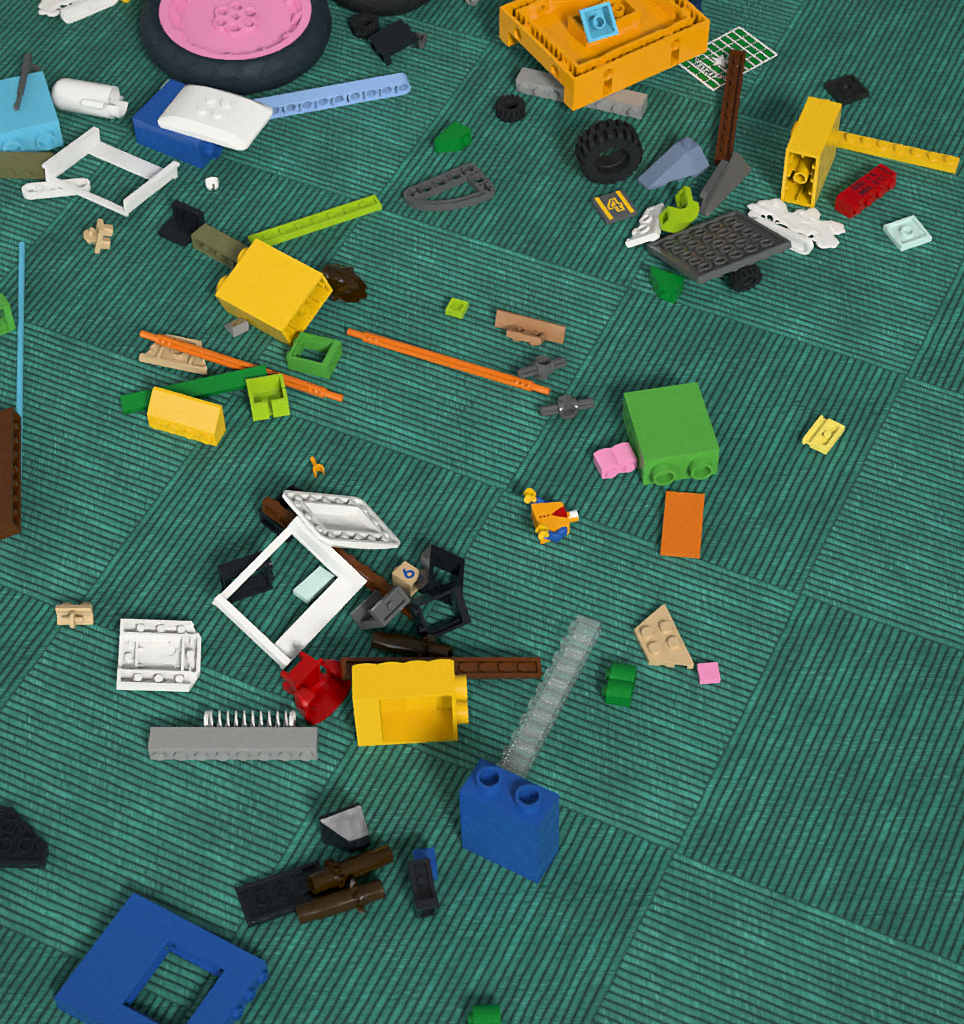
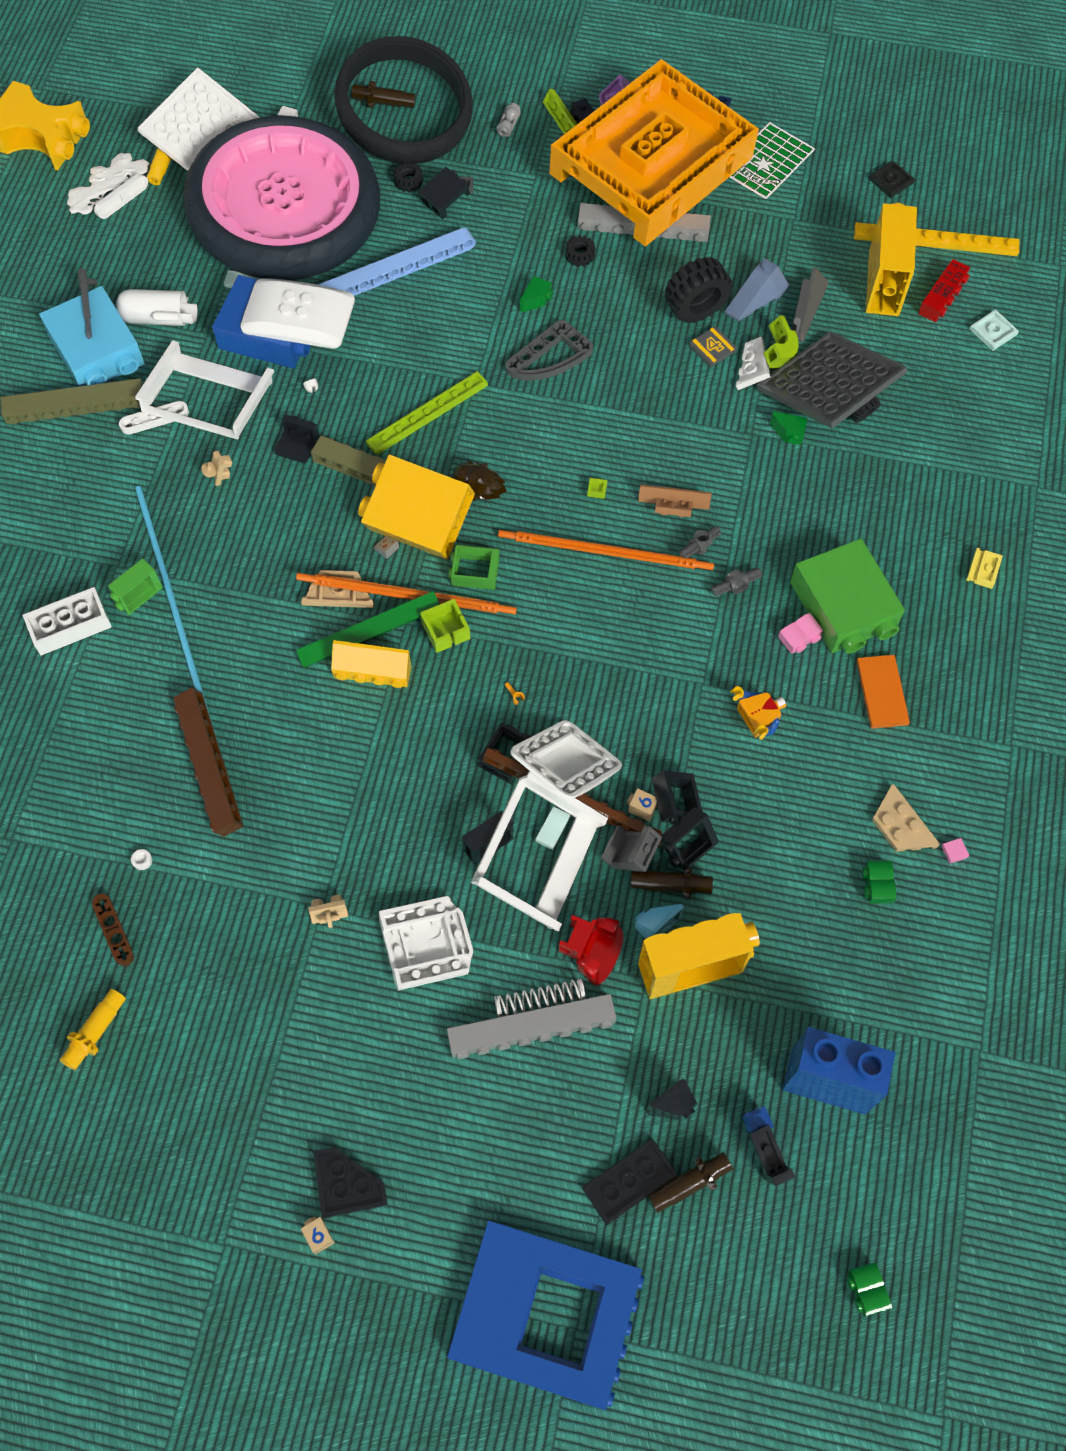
camera: 15 degrees left, 15 degrees up
(336, 874) = (678, 1154): dark brown gear -> none
(471, 666) = (715, 907): reddish brown plate -> none
(550, 696) = (818, 916): clear brick -> none
(598, 22) = (656, 148): medium azure slope -> none
(730, 106) = (790, 216): reddish brown plate -> none
(800, 221) = (892, 334): white plant -> none

